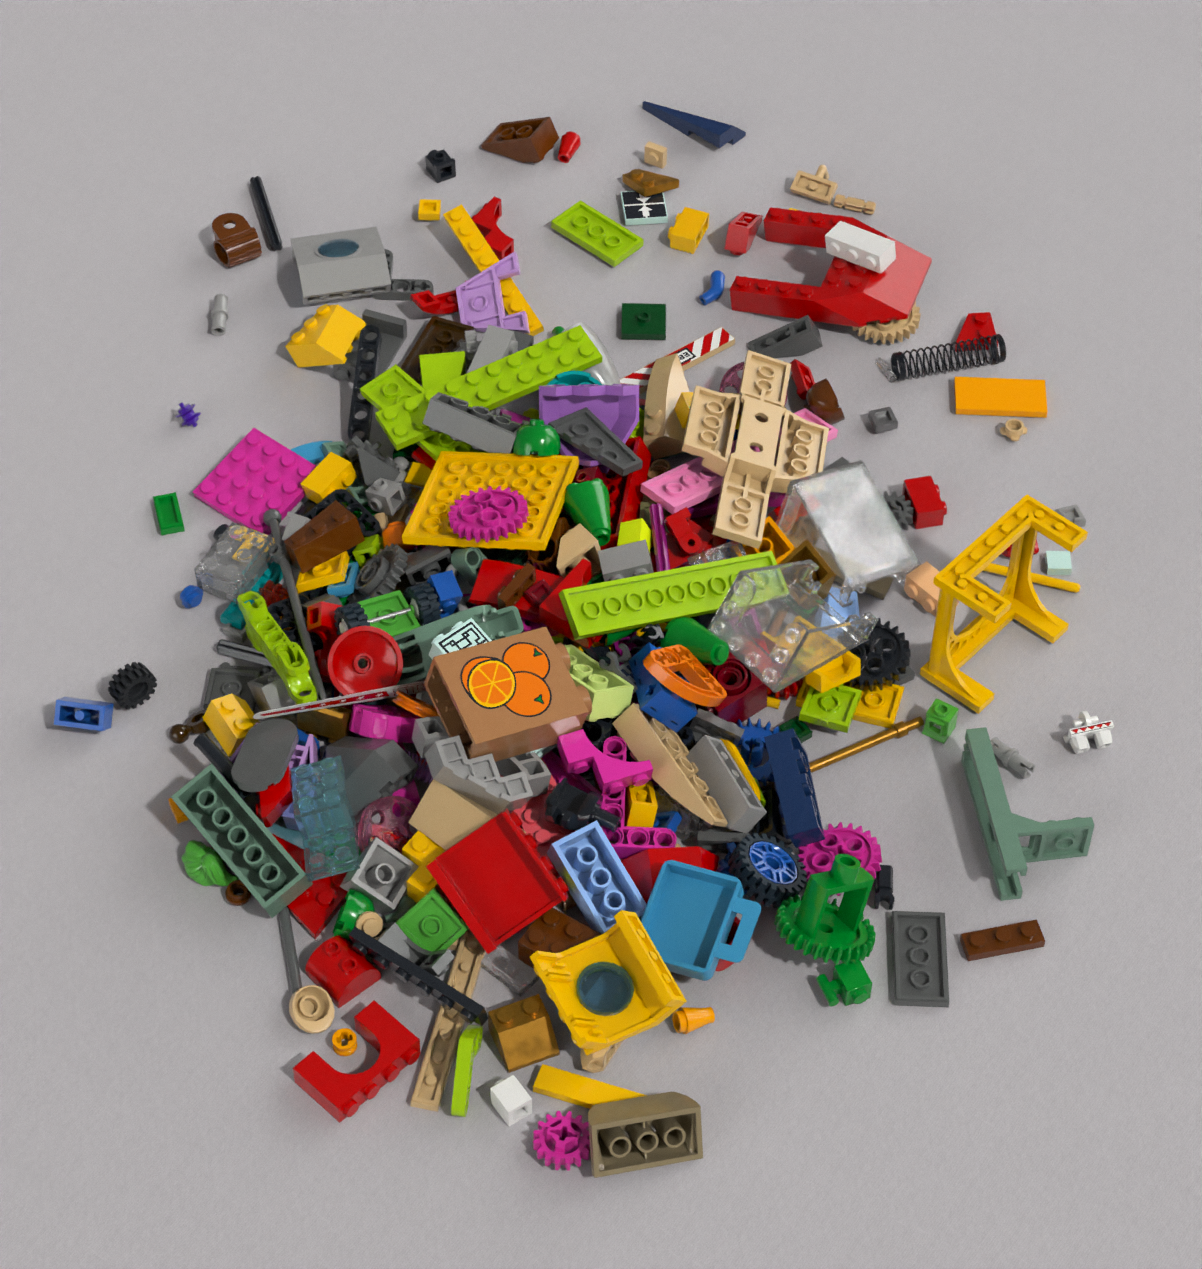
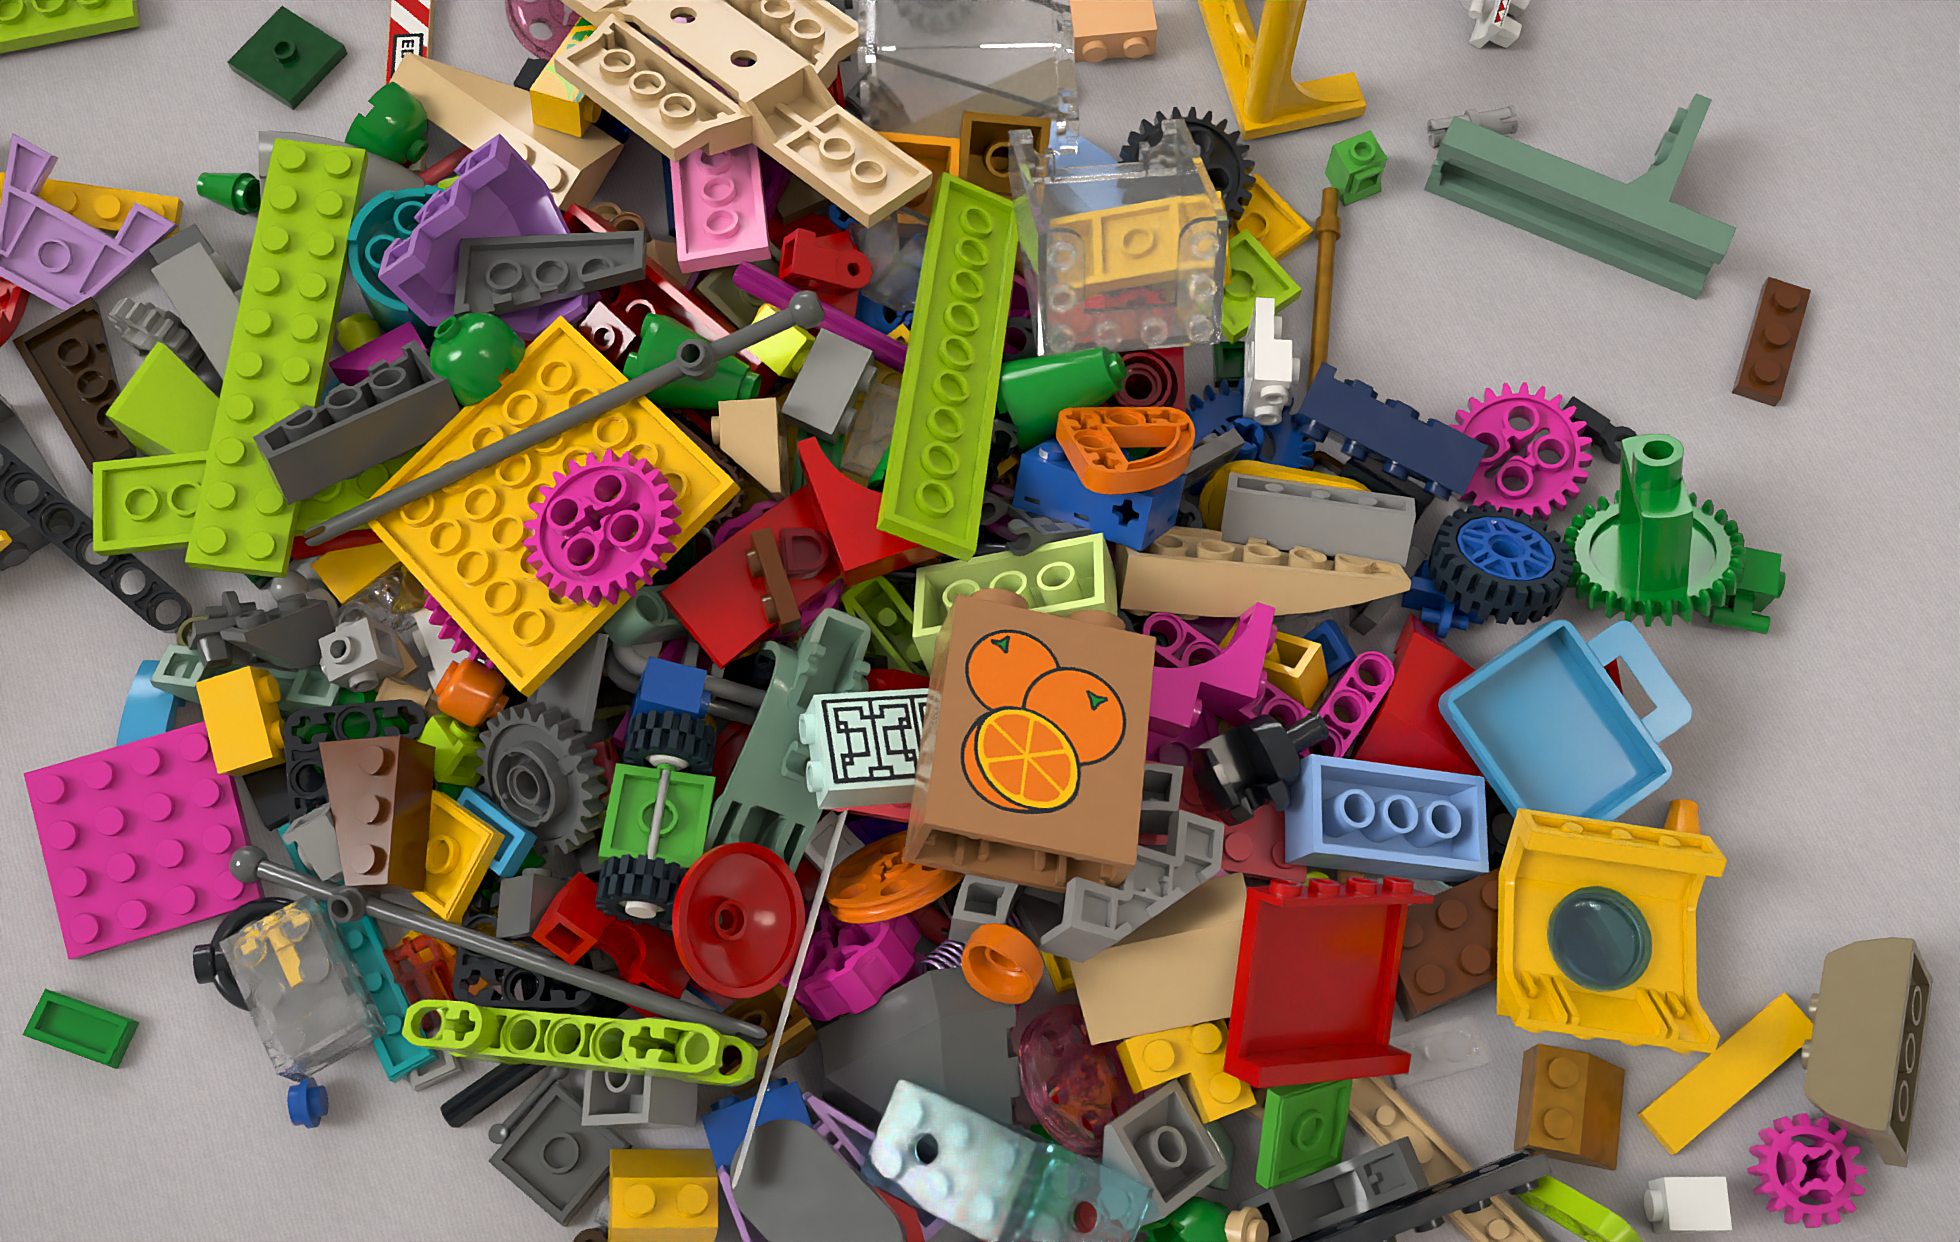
camera: 55 degrees left, 20 degrees up
(411, 750) = (1002, 963): none -> orange hat
(586, 497) = (693, 359): none -> dark grey bar
(633, 366) = (393, 126): none -> green cylinder
(789, 715) = (1267, 366): none -> white plate
(919, 959) = (1748, 465): dark grey tile -> none

